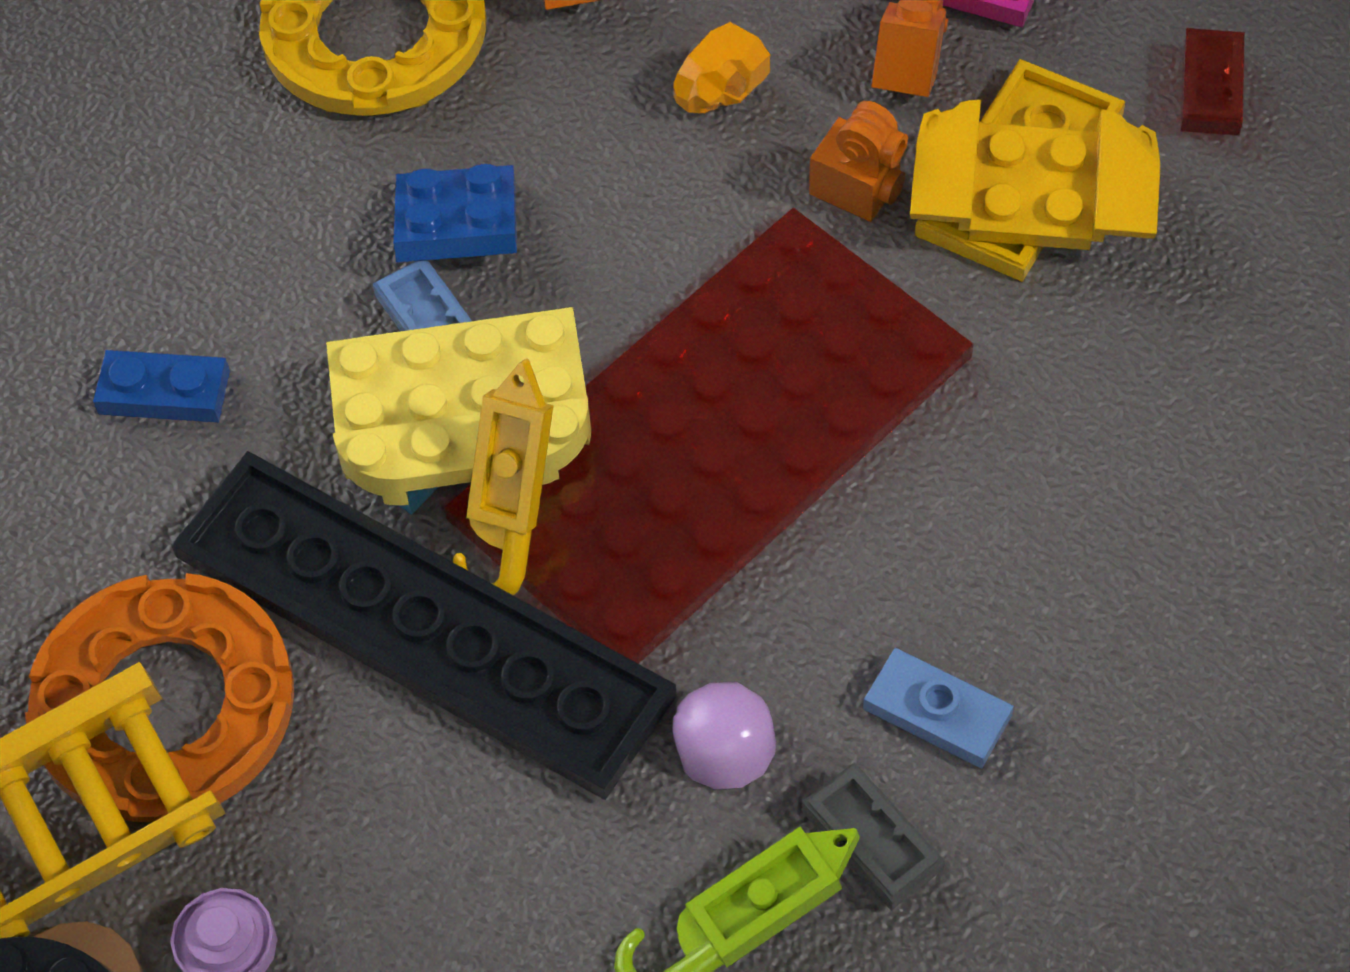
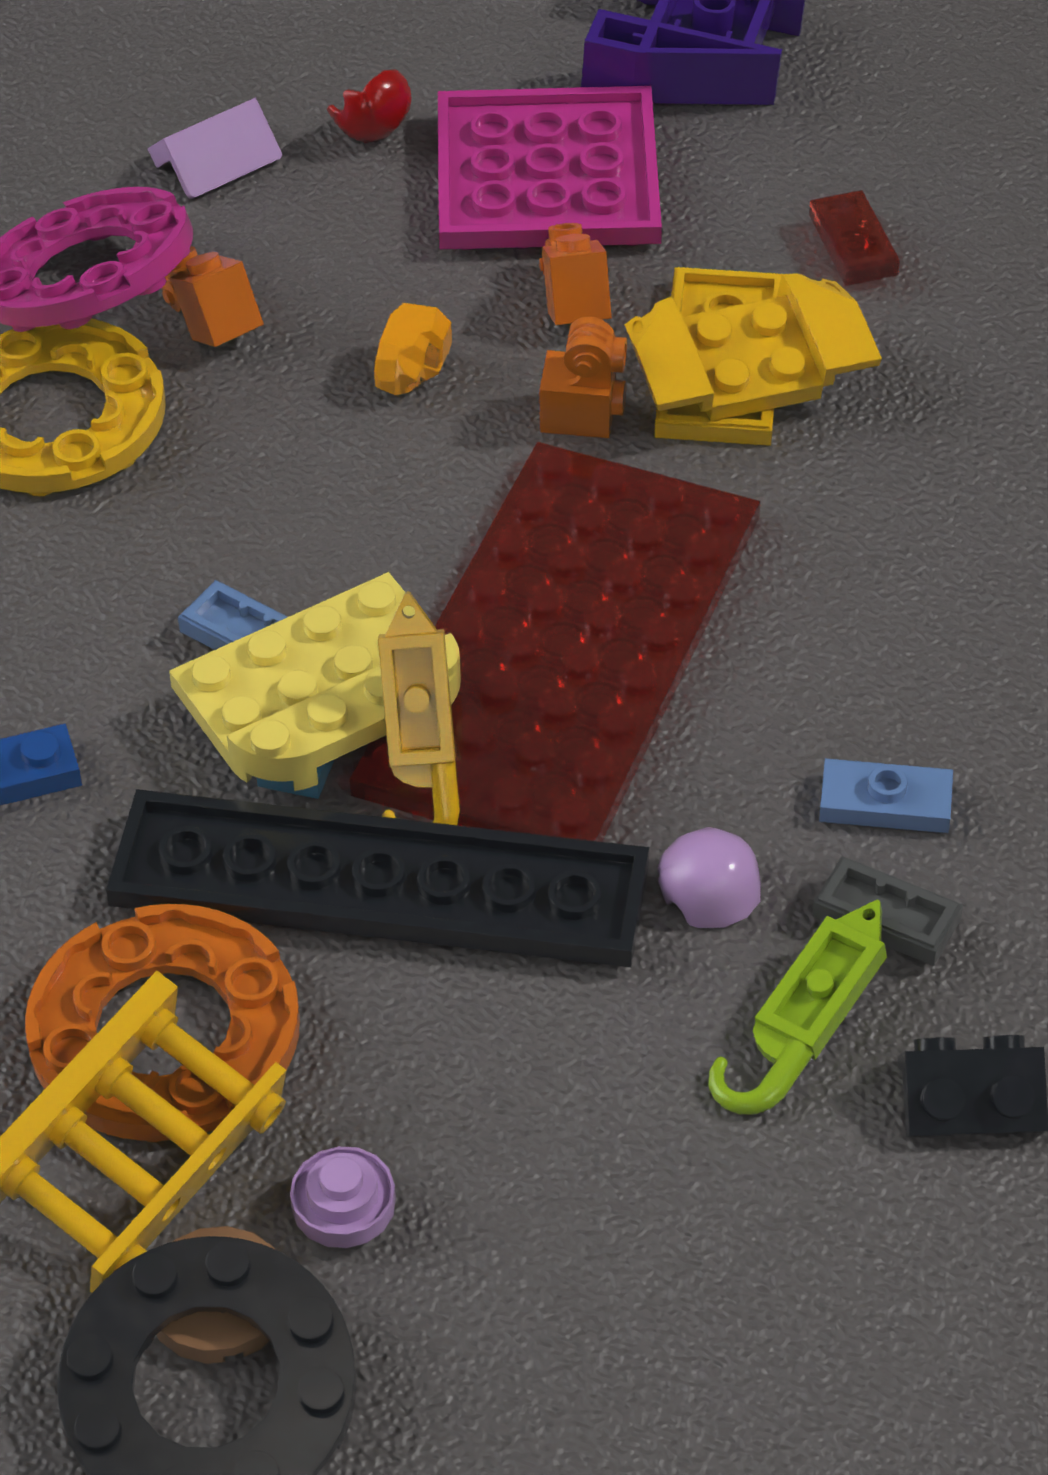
camera: 25 degrees left, 10 degrees down
(455, 213) = (224, 536): blue plate -> none

